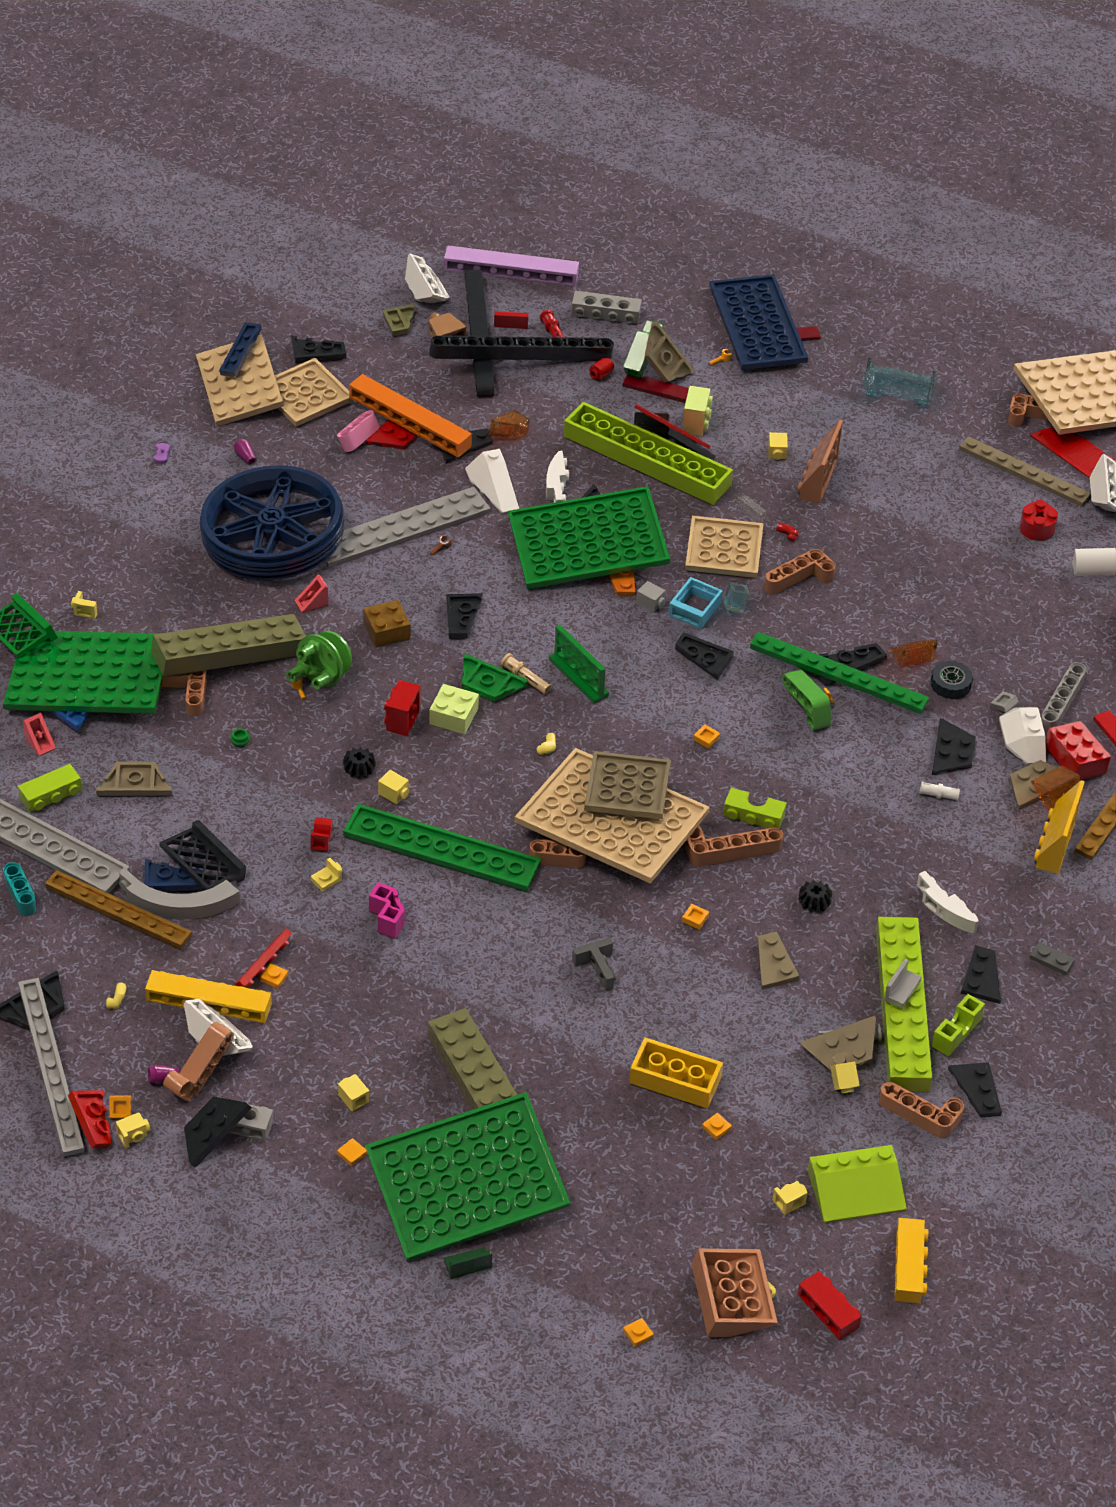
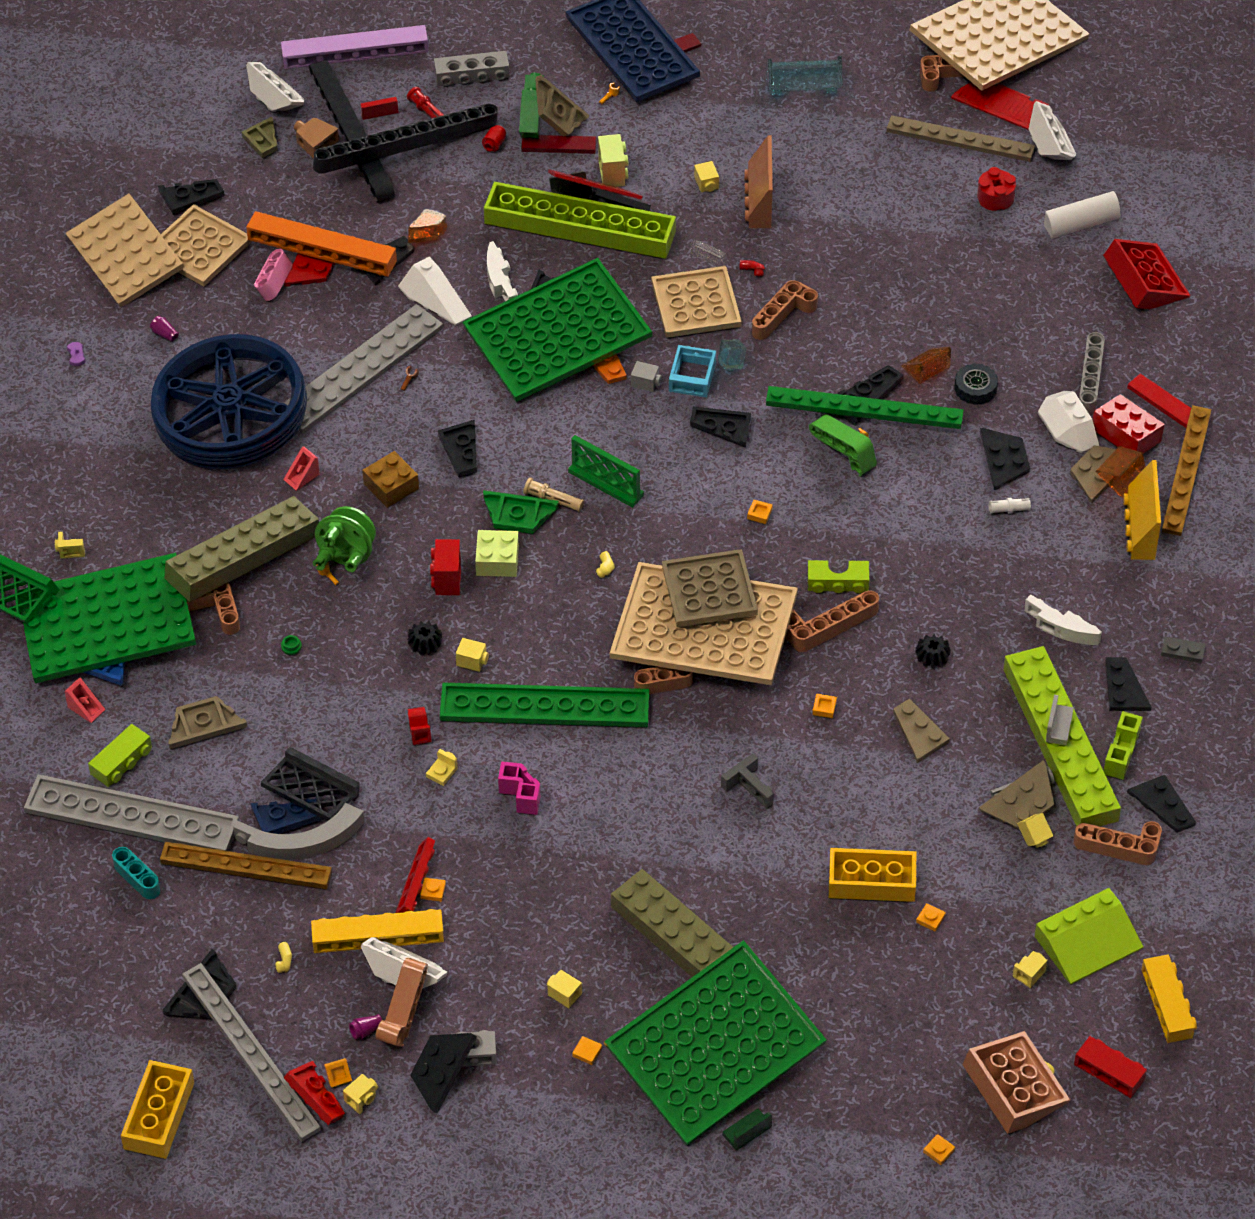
camera: 15 degrees left, 5 degrees up
(240, 349) = (115, 217): dark blue plate -> none
(1004, 702) = (1036, 393): light grey plate -> none

